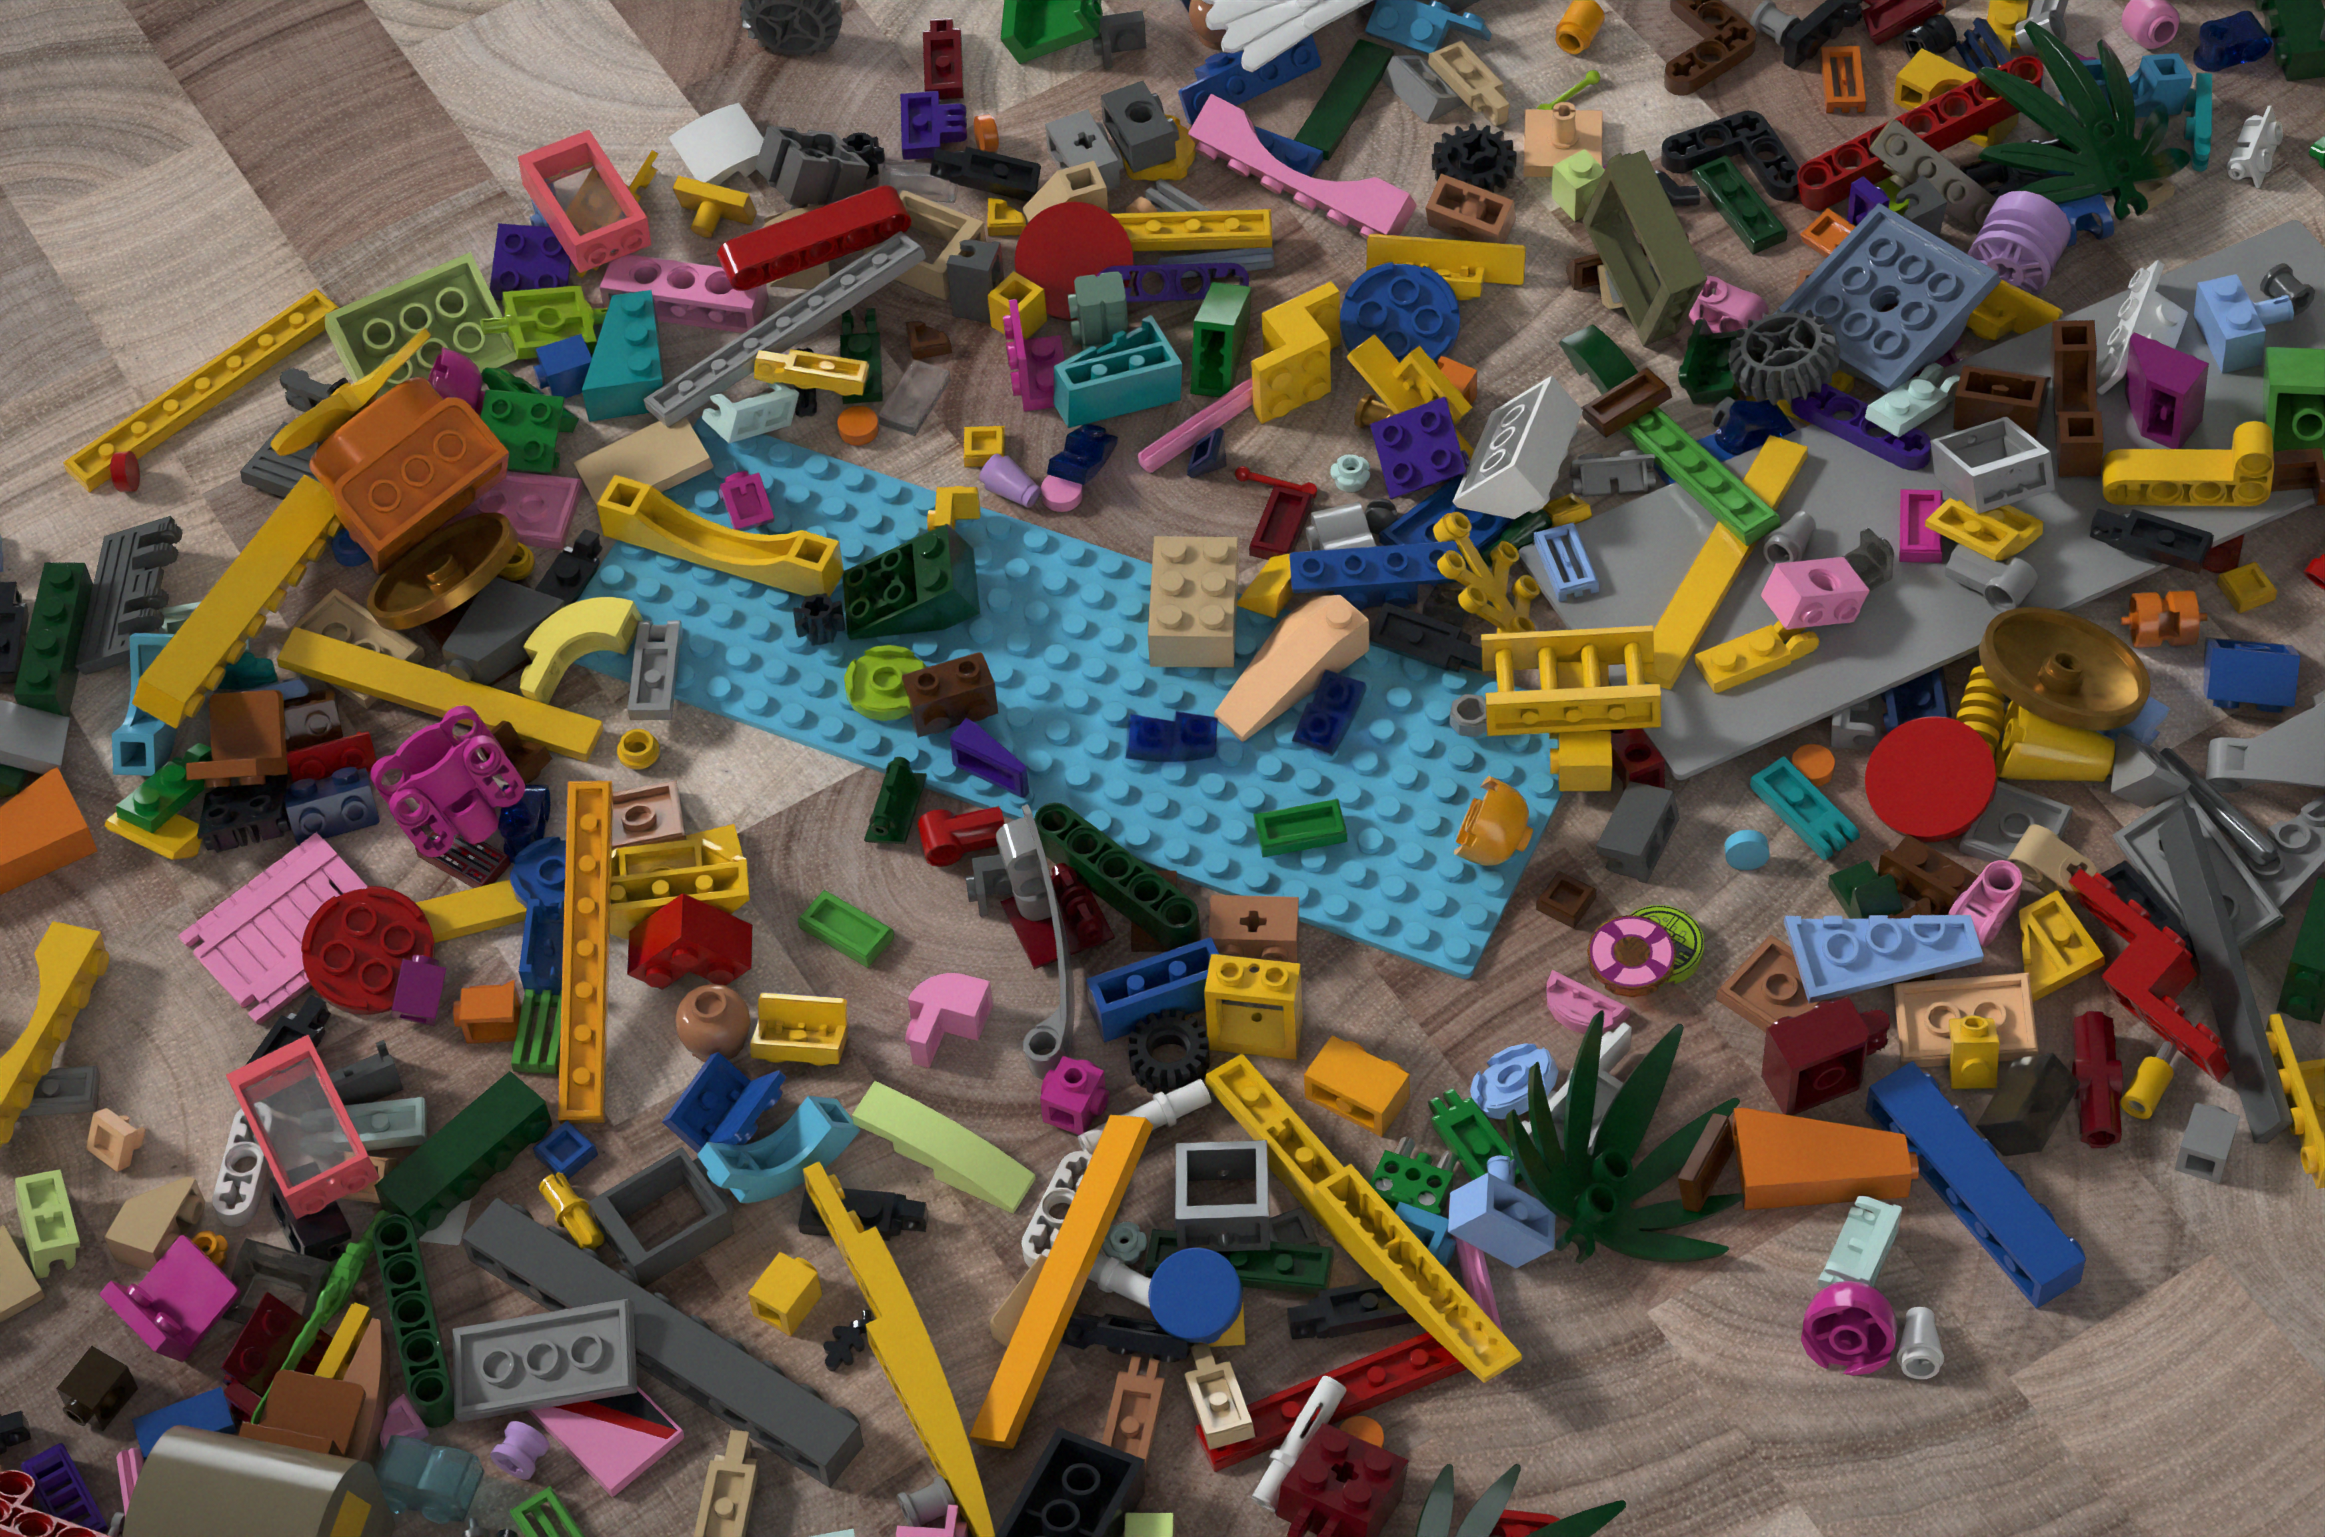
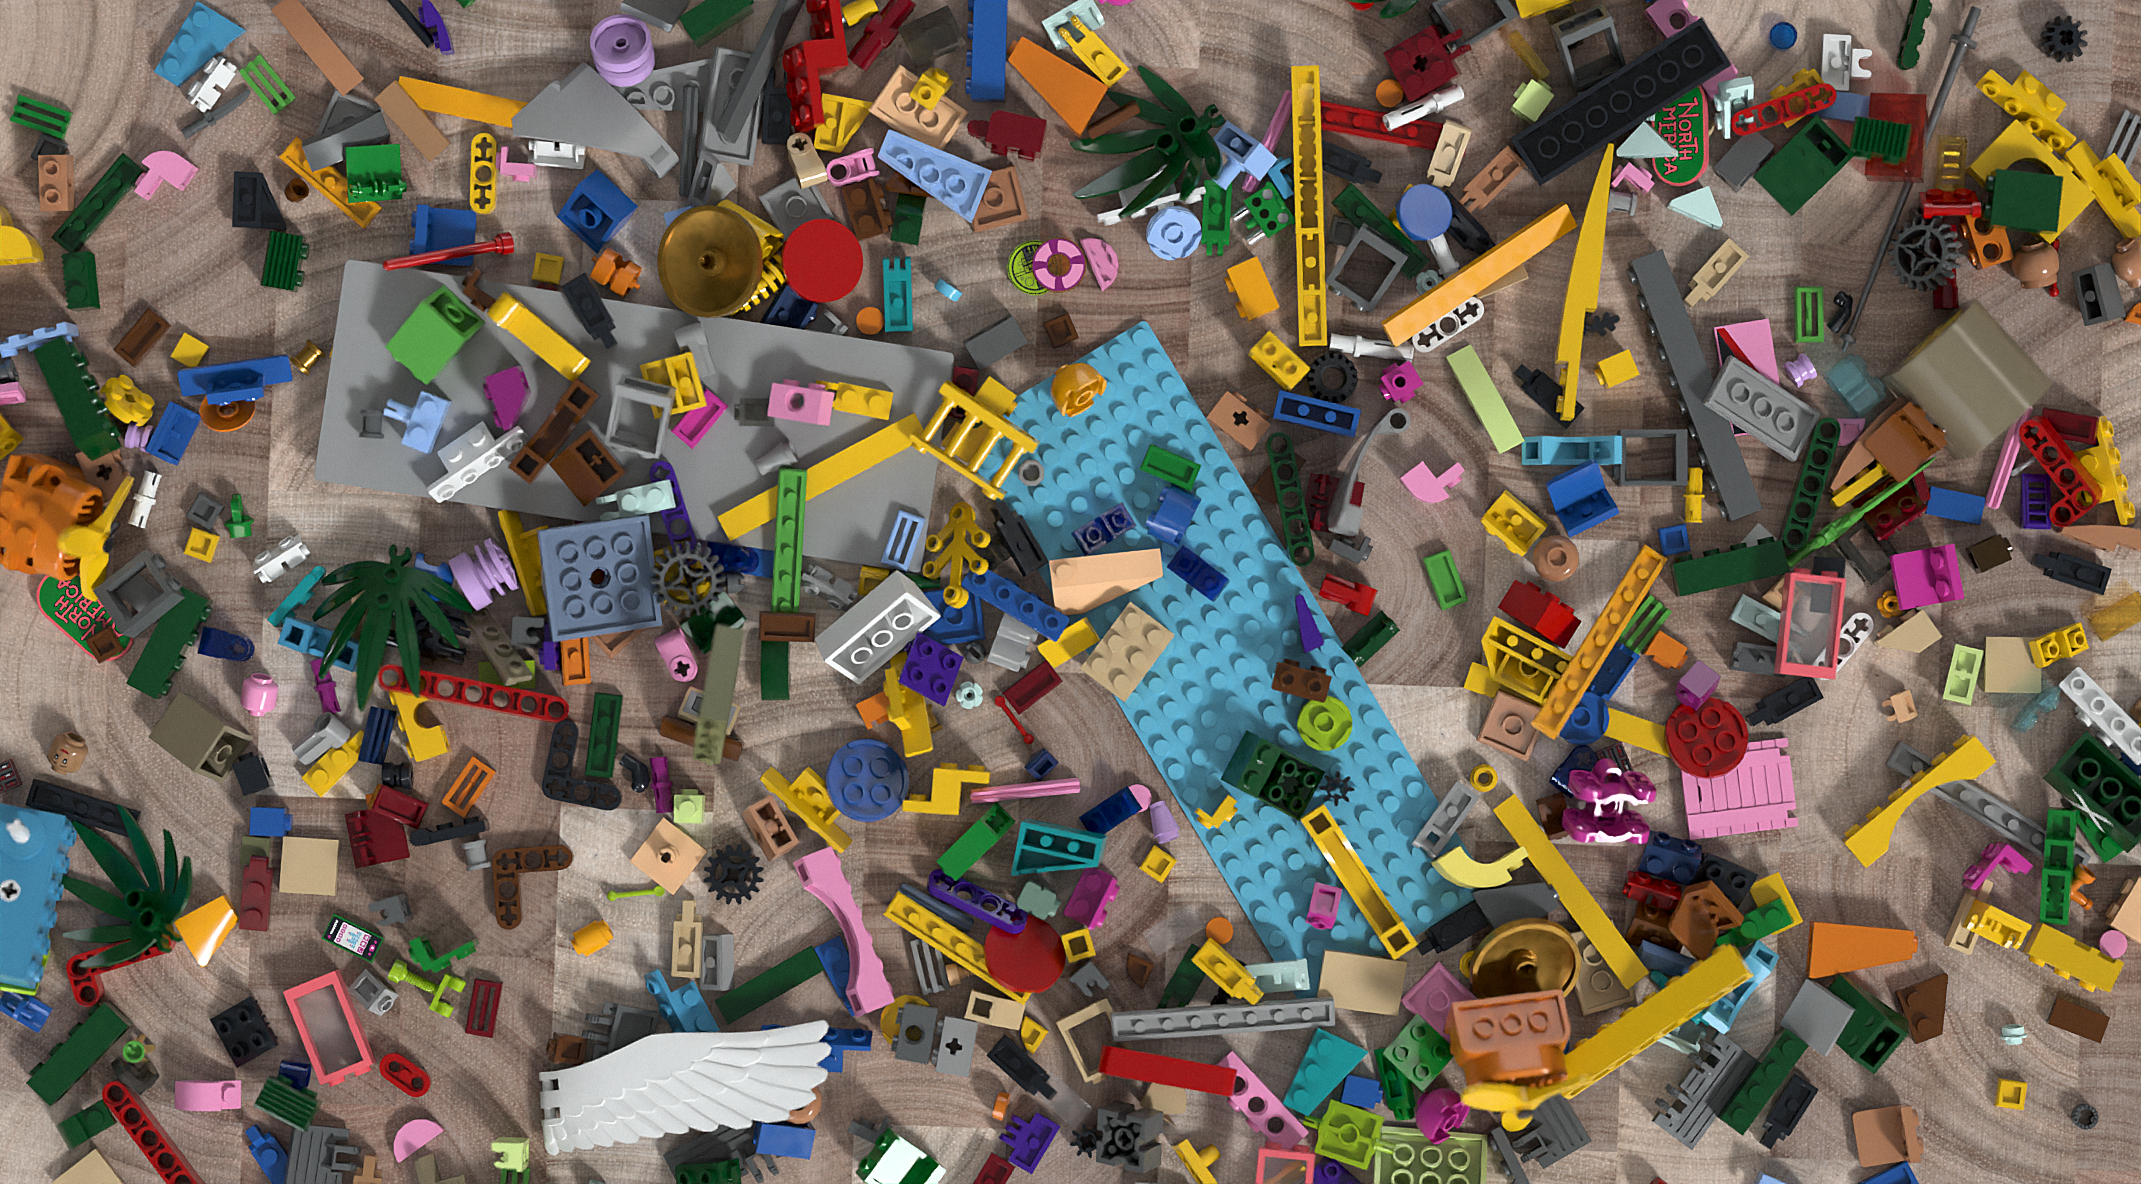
camera: 150 degrees left, 35 degrees up
(1255, 778) = (1173, 515): none -> blue cylinder
(1804, 1223) = (1095, 53): none -> yellow hinge

